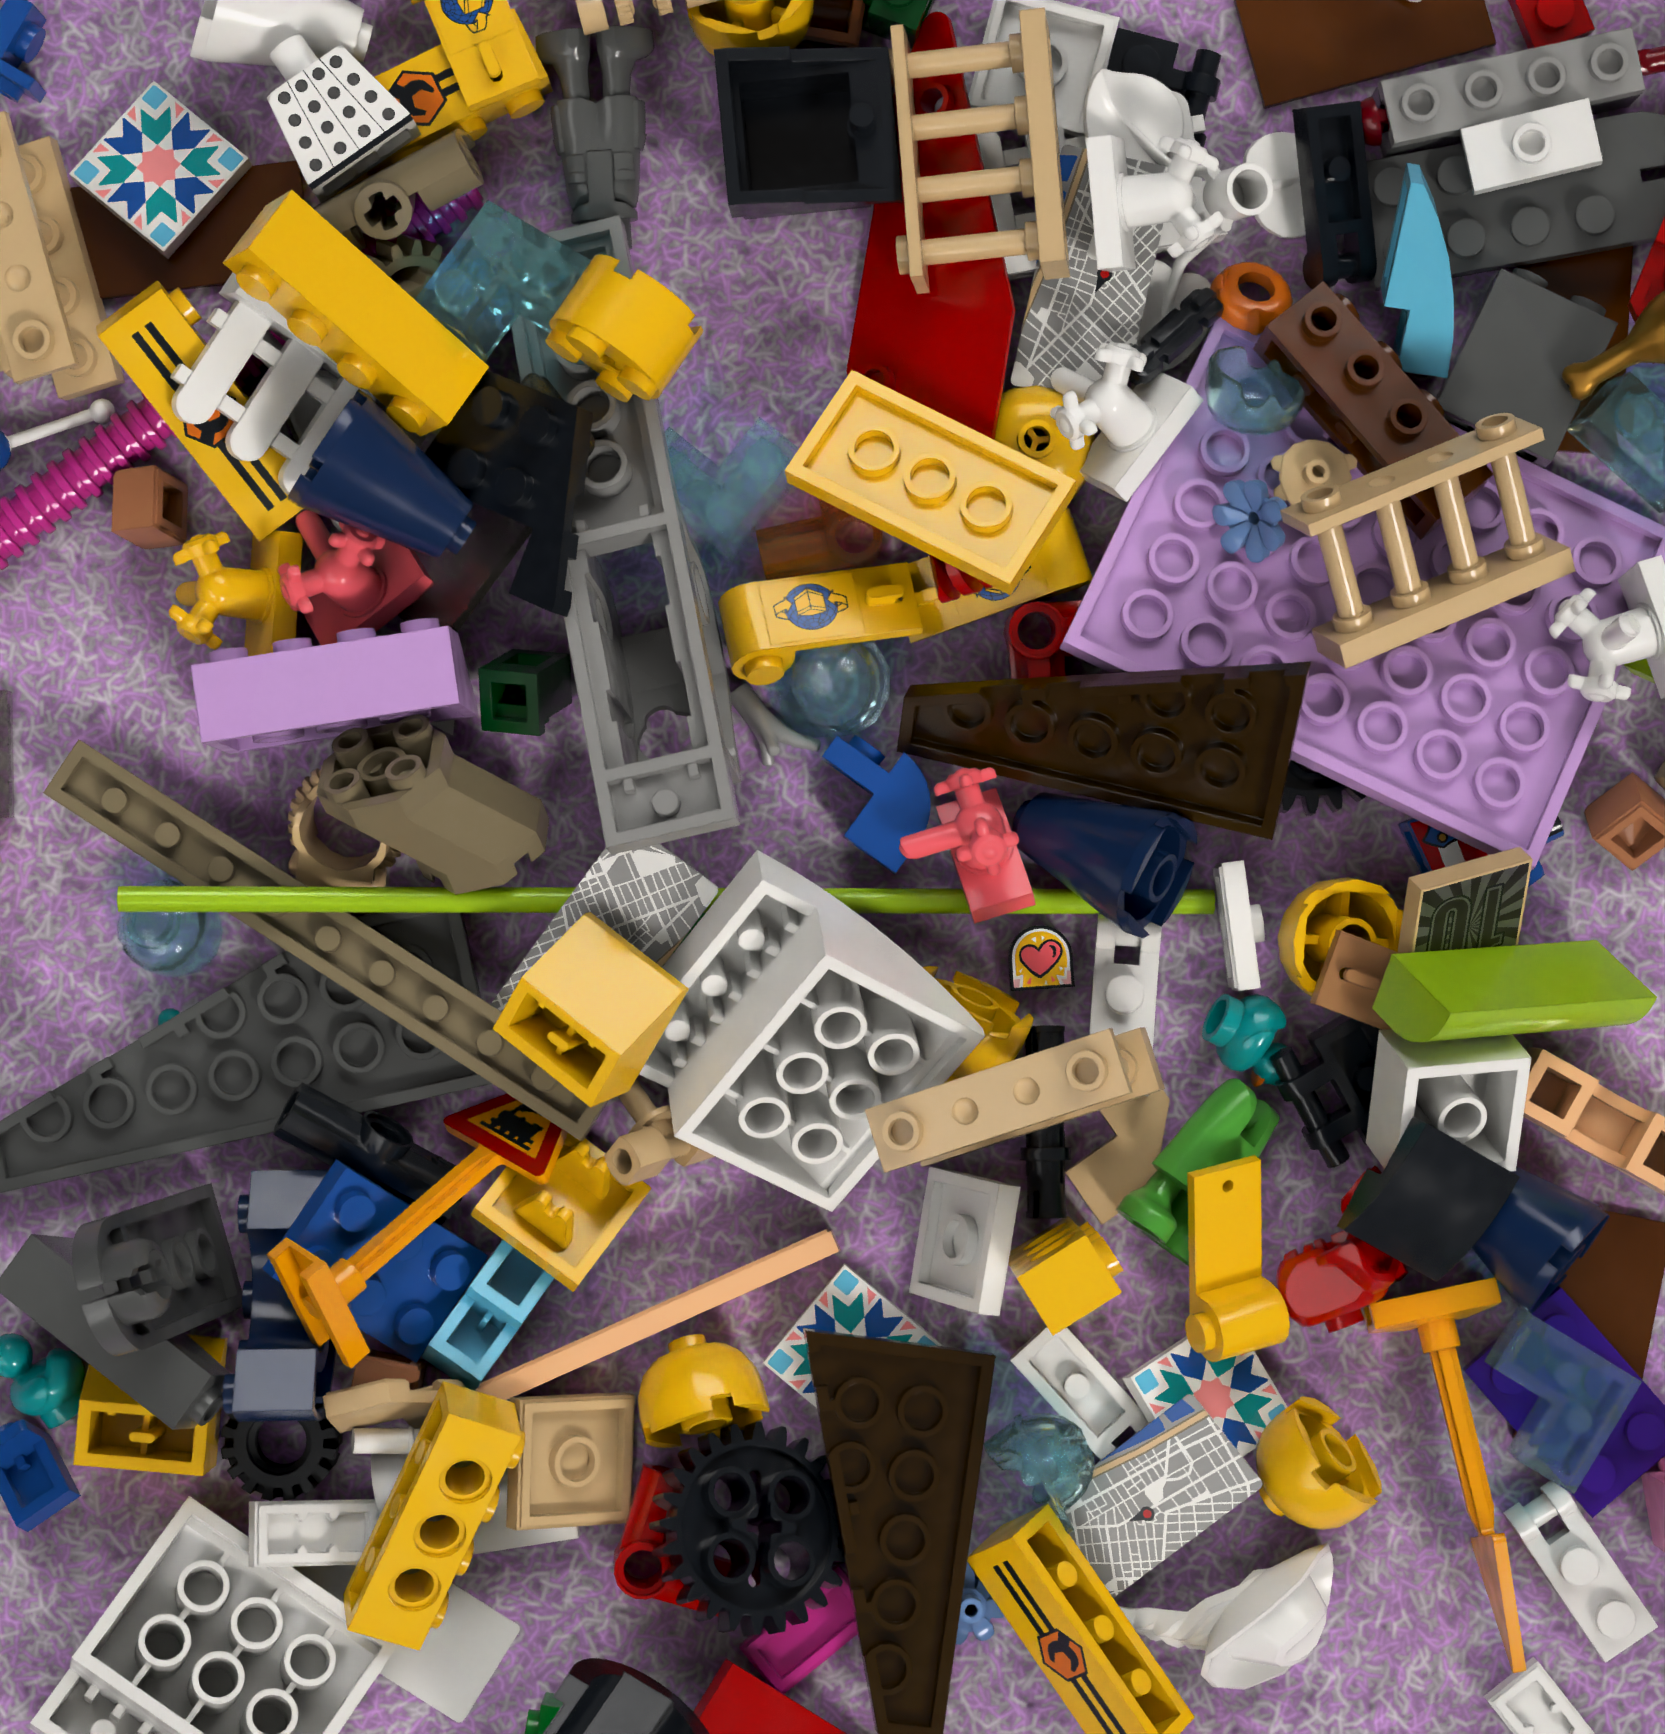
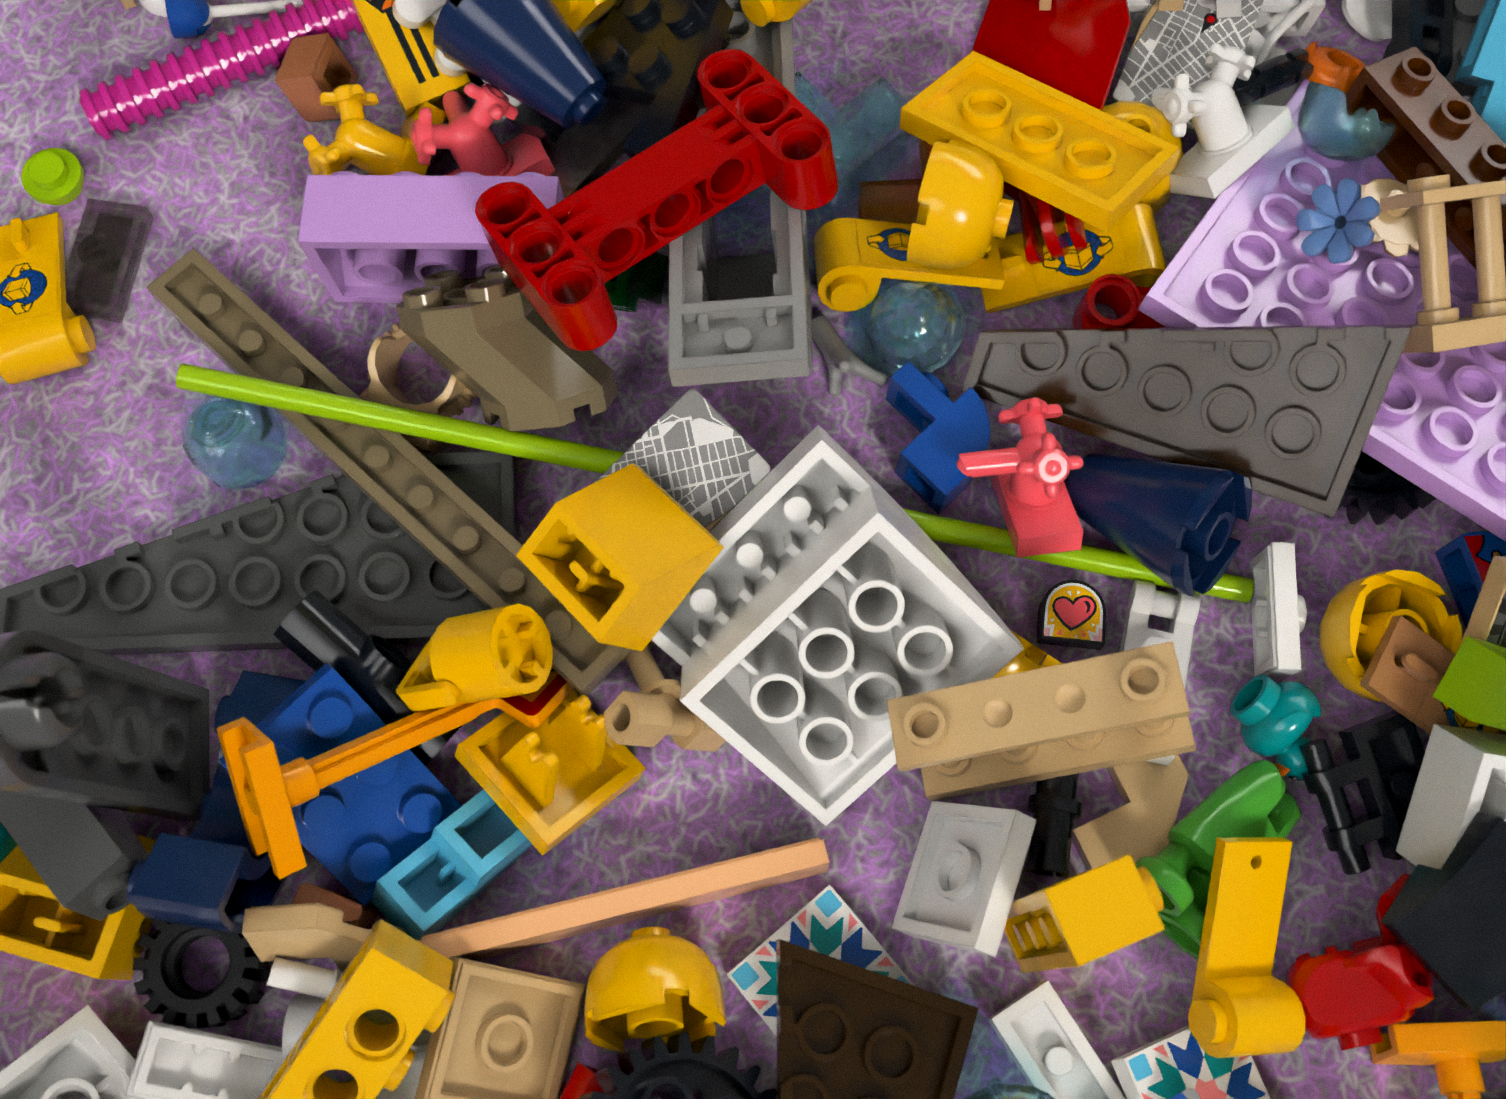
camera: 10 degrees right, 15 degrees down
(476, 1130) = (480, 659): none -> yellow piece
(558, 656) = (745, 139): none -> red beam
(860, 582) = (958, 207): none -> yellow cylinder

